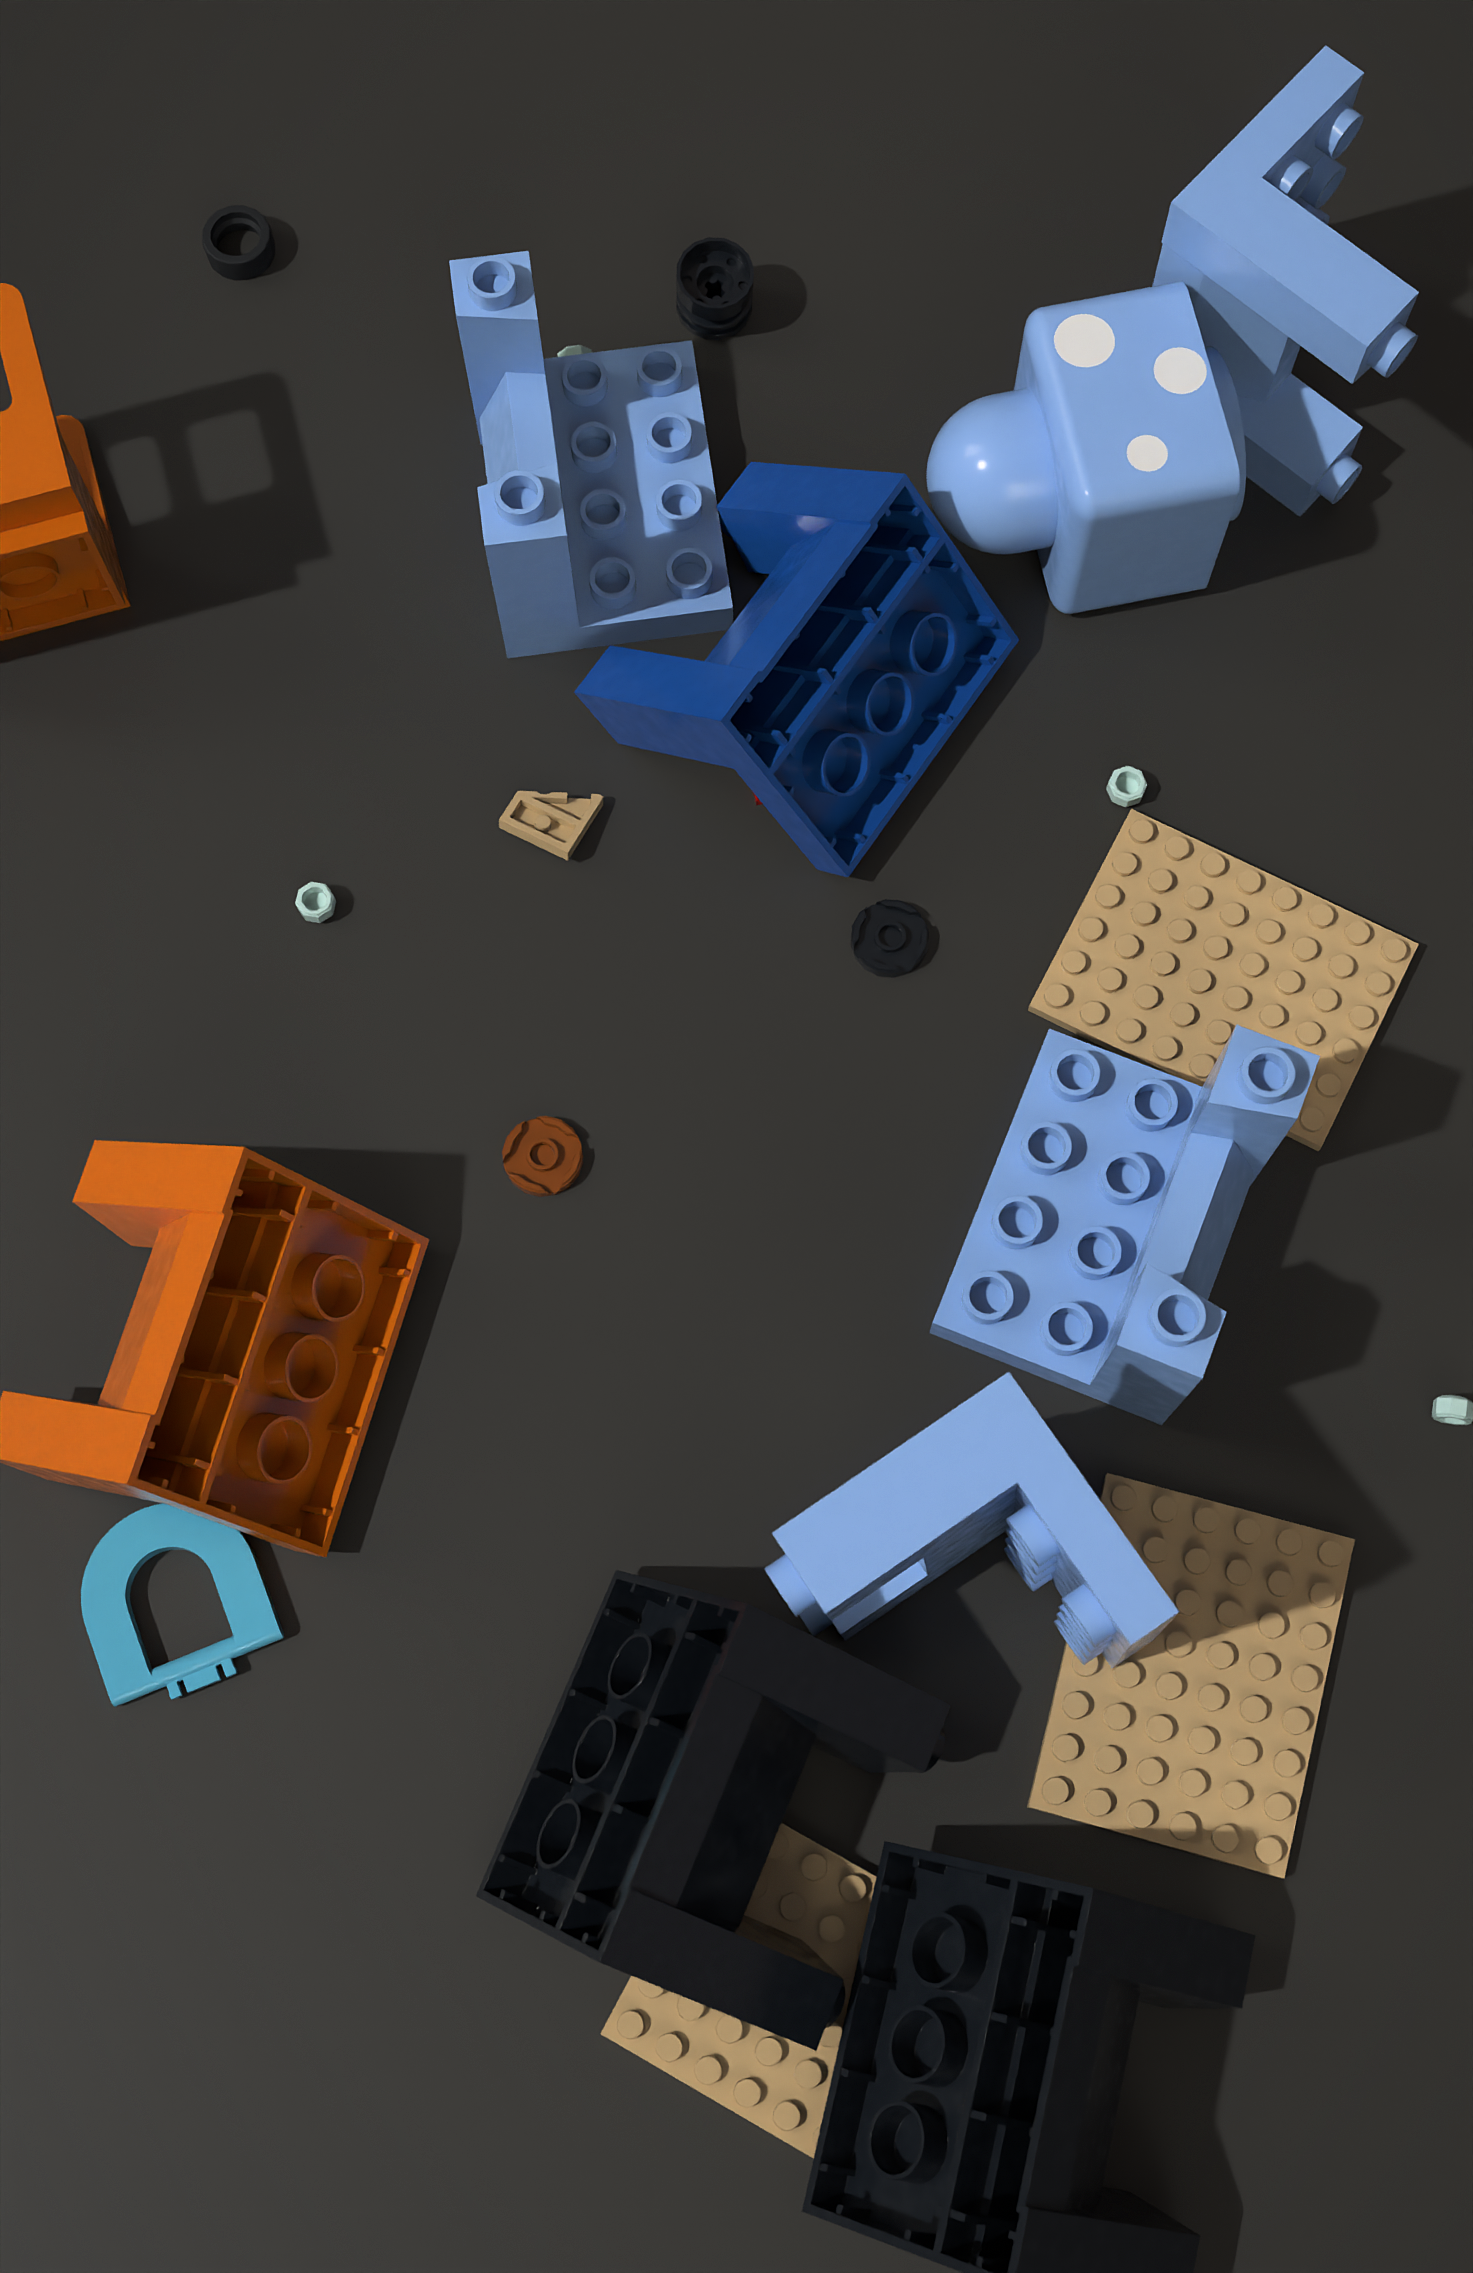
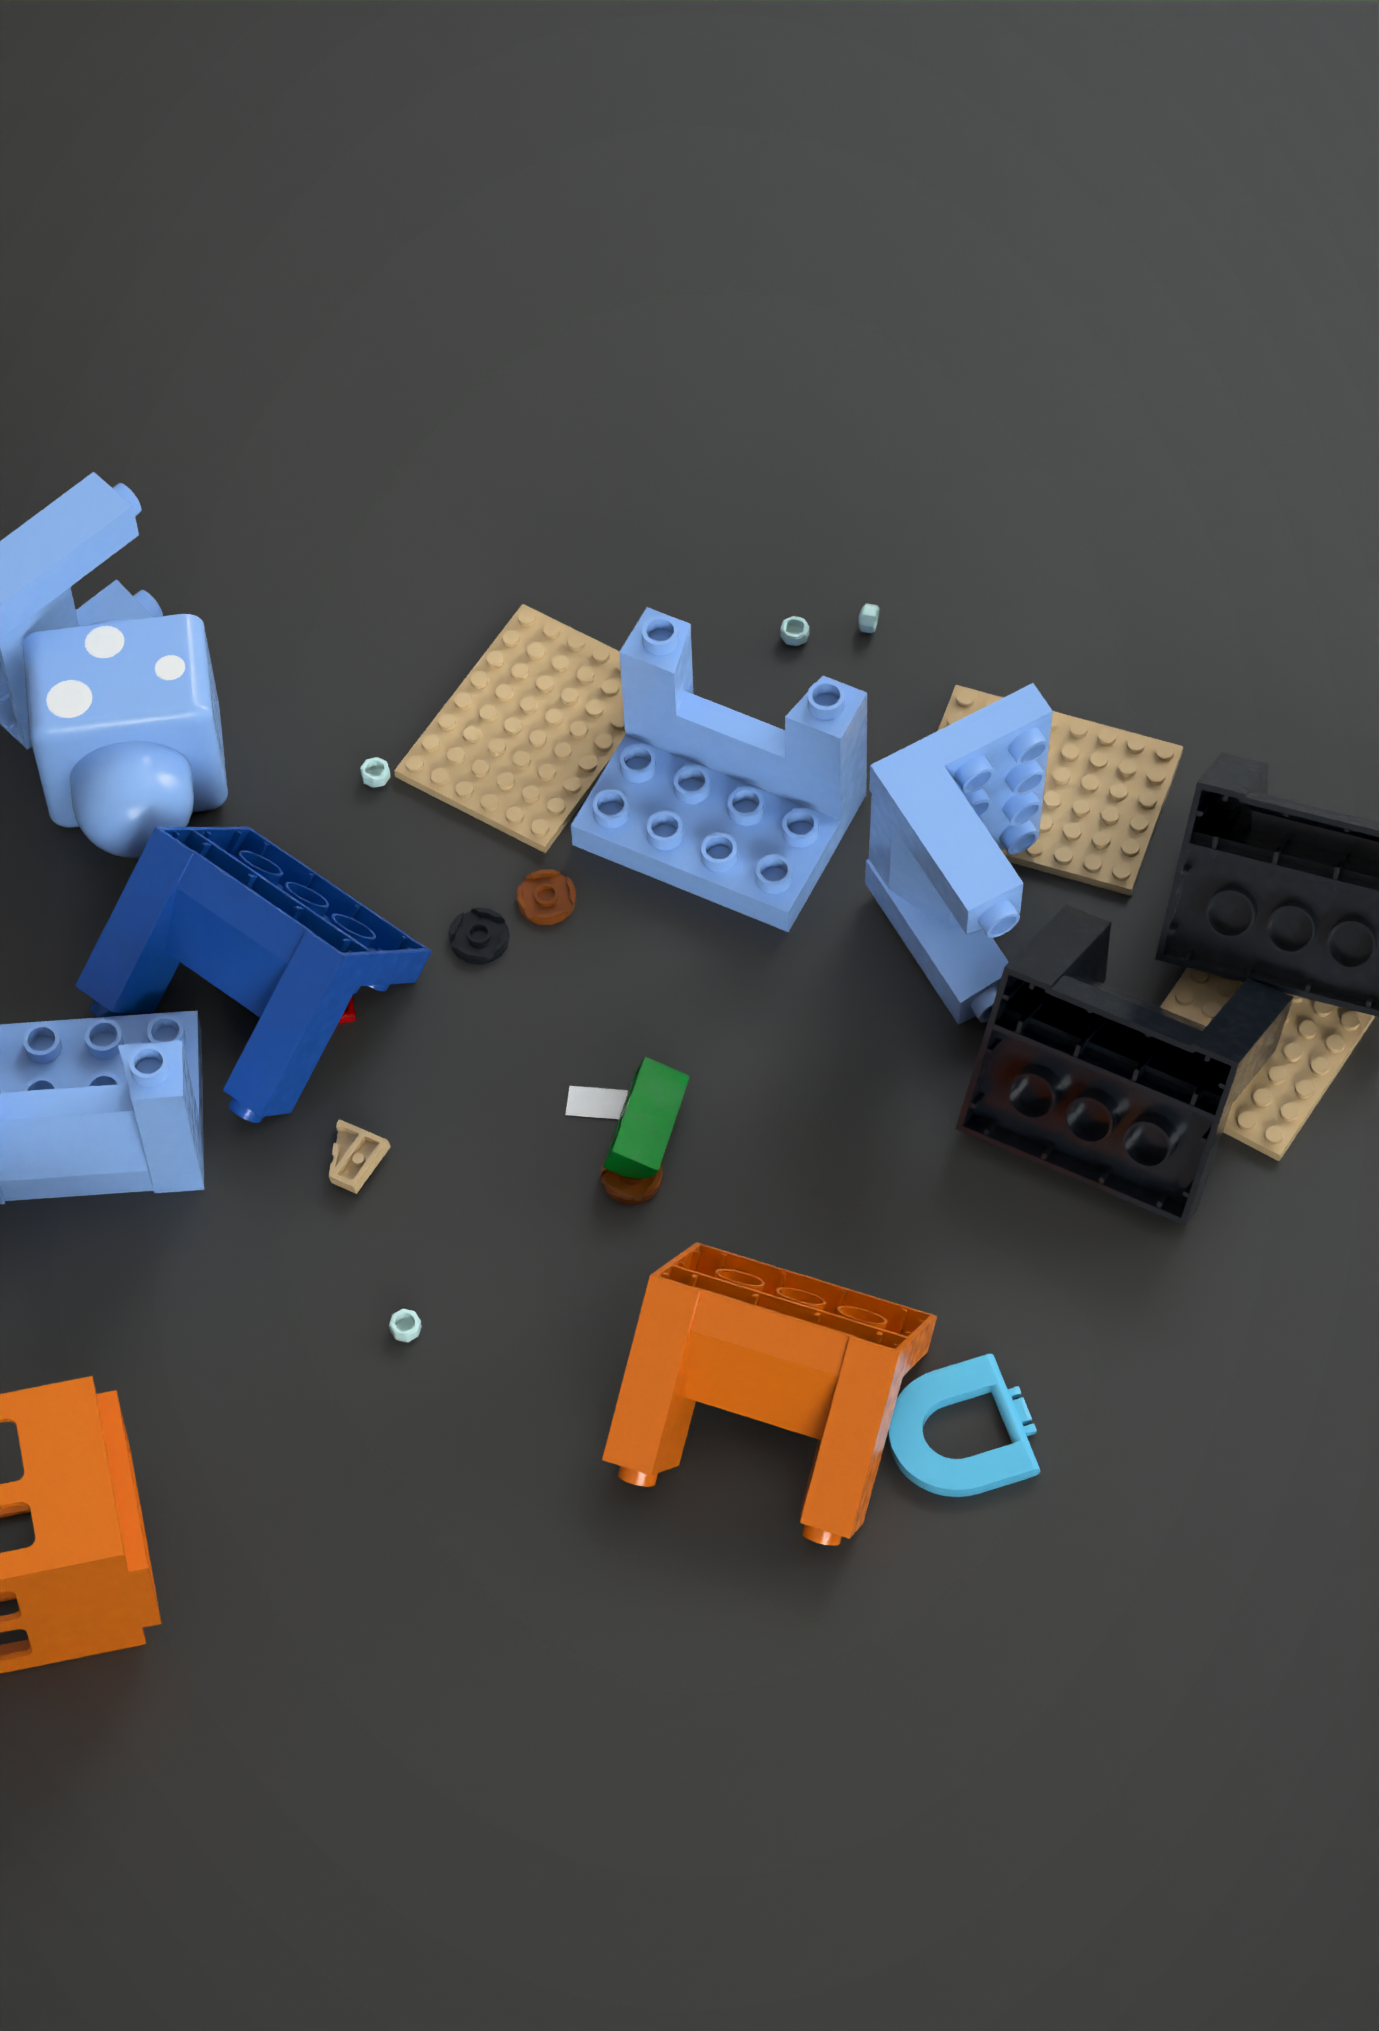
camera: 85 degrees left, 15 degrees down
(608, 1164) = (646, 1120): none -> green brick
(650, 1105) = (595, 1102): none -> white sticker
(955, 1016) = (546, 897): none -> dark orange tile
(1420, 1308) = (794, 631): none -> light aqua tile

